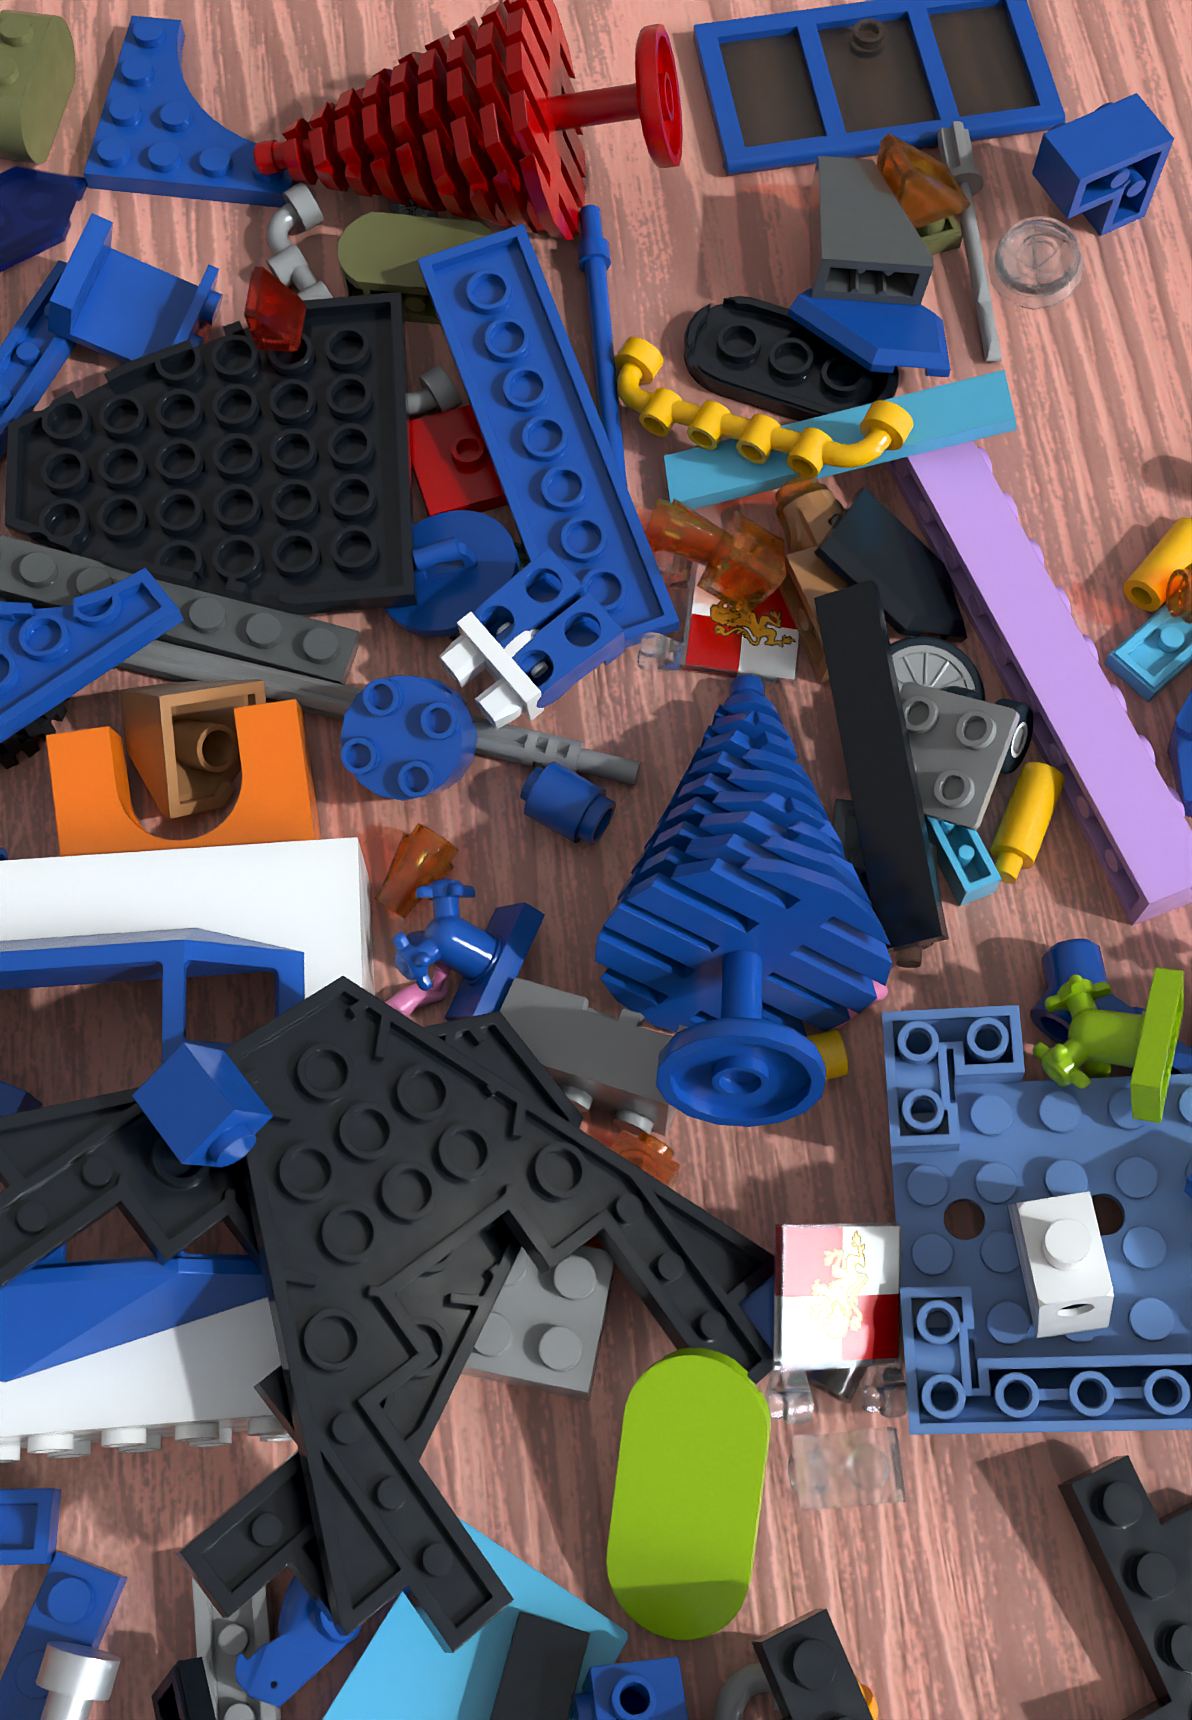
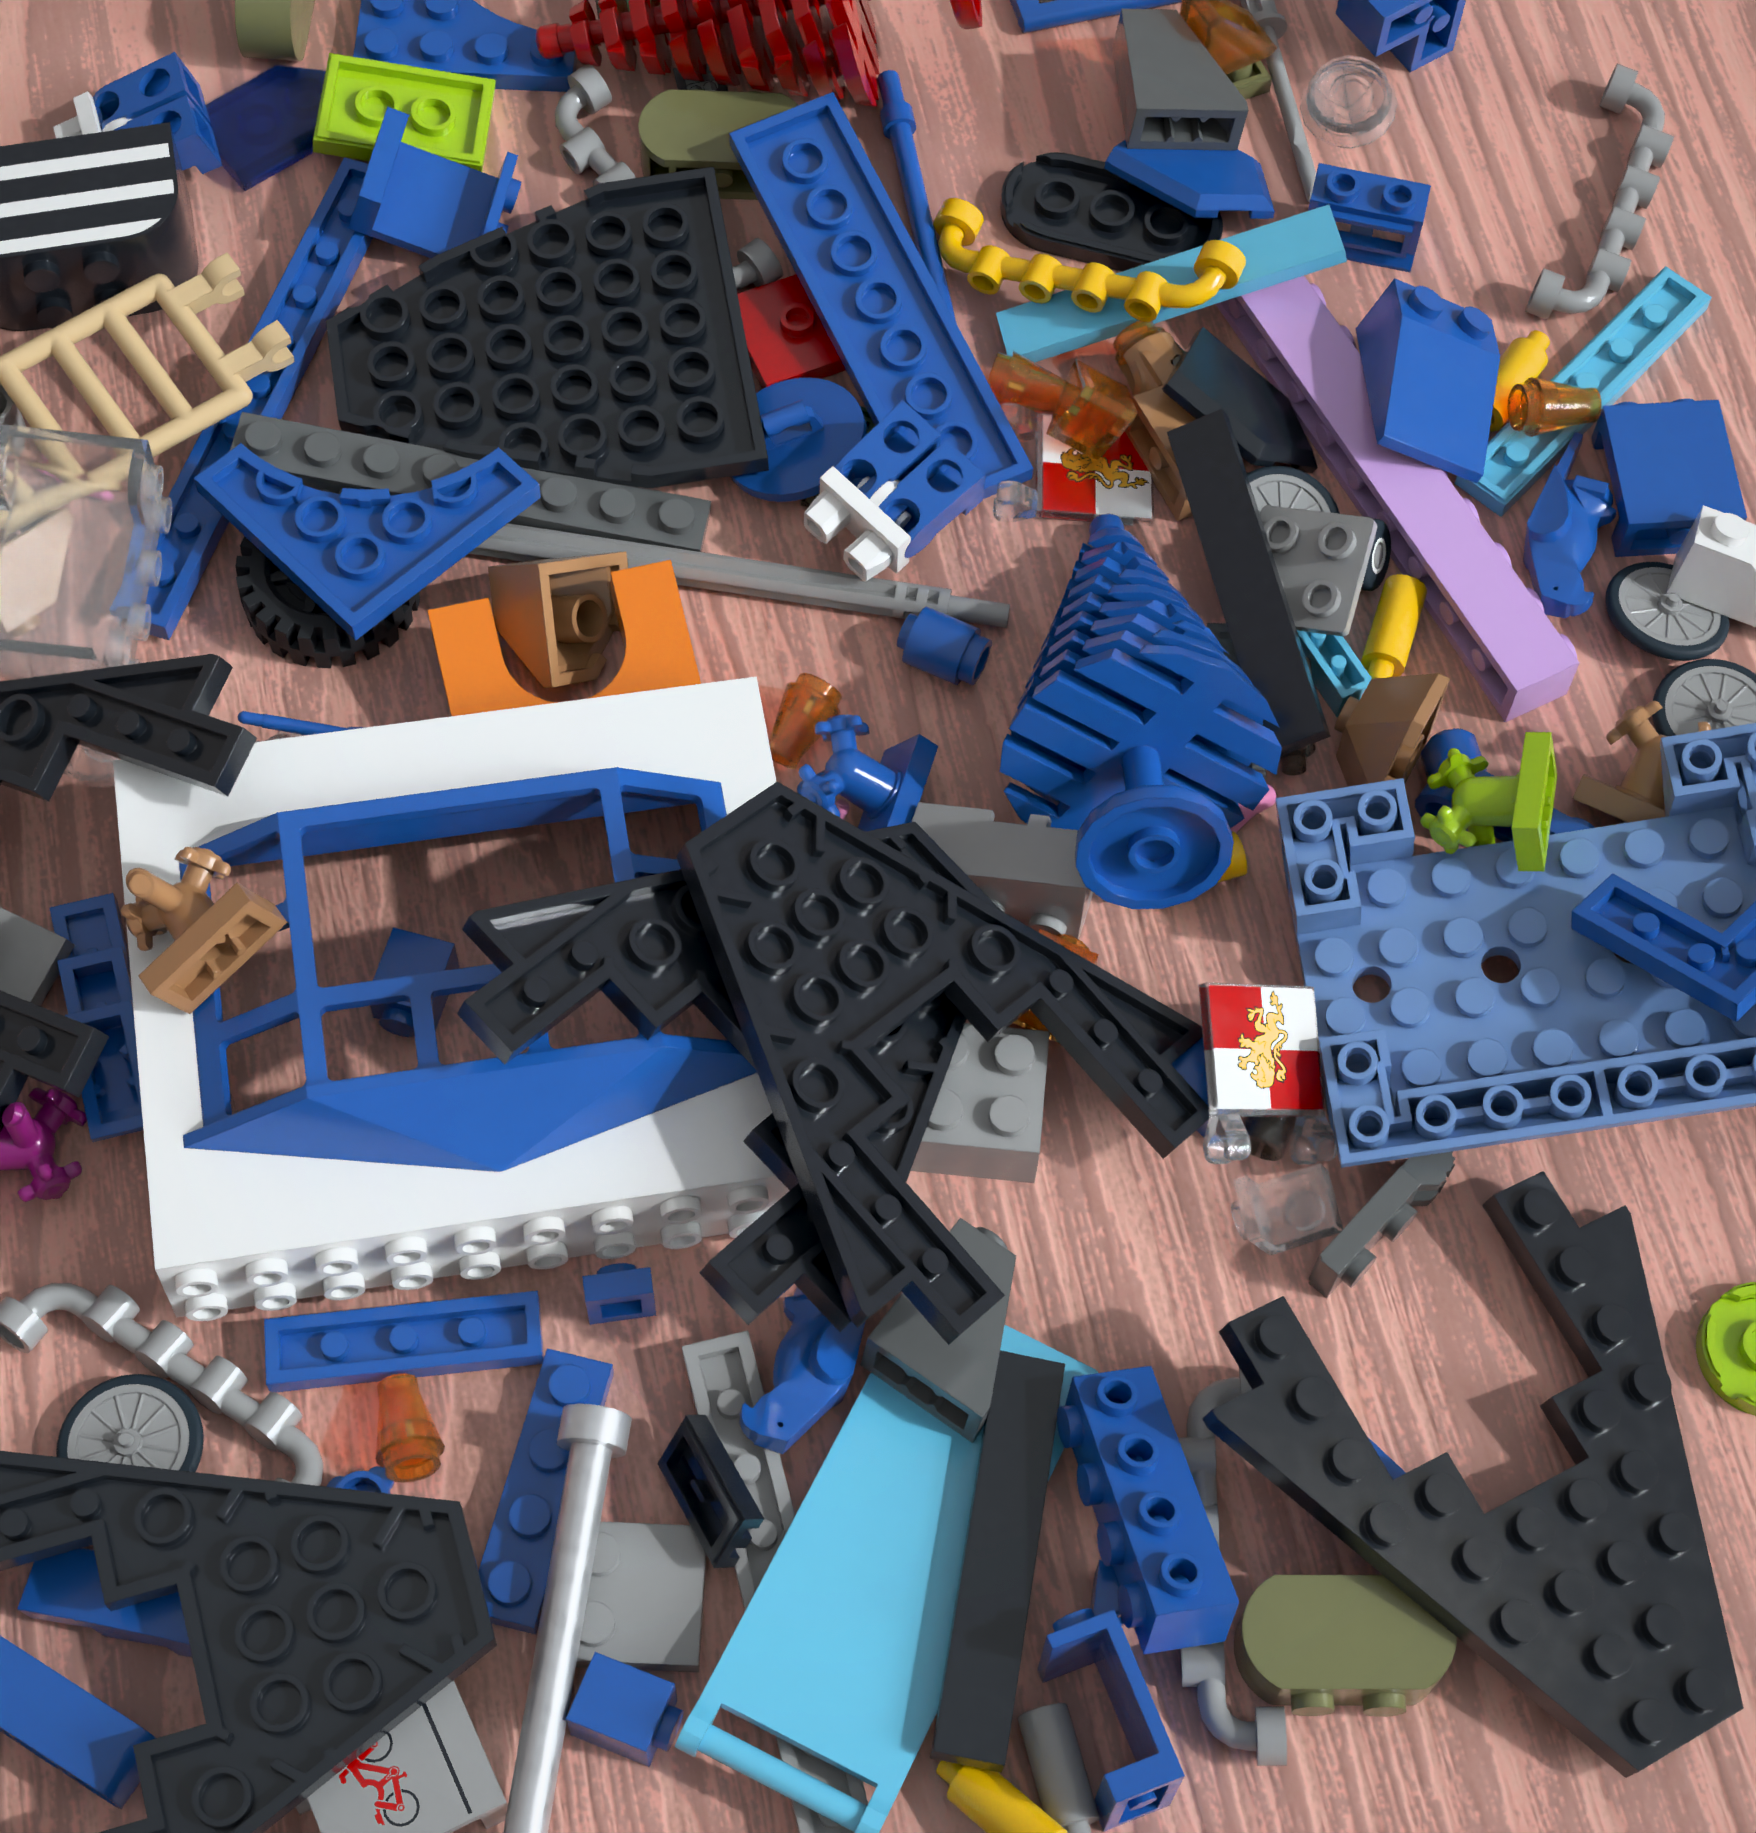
camera: 10 degrees left, 5 degrees down
(137, 1495) = (619, 1293): none -> blue plate
(150, 217) = (444, 108): none -> lime tile
(203, 1107) = (679, 886): blue brick -> none
(273, 313) = (591, 195): clear red slope -> none
(408, 737) = (782, 591): blue brick -> none
(507, 1528) = (946, 1379): none -> dark grey slope
(688, 1494) = (1142, 1232): lime tile -> none
(952, 1485) = (1384, 1214): none -> dark grey hinge
(1007, 937) = (1388, 727): none -> medium nougat slope
(1044, 370) = (1369, 204): none -> blue window
(1062, 1264) = (1461, 983): white torso -> none
(1090, 558) = (1430, 377): none -> blue slope

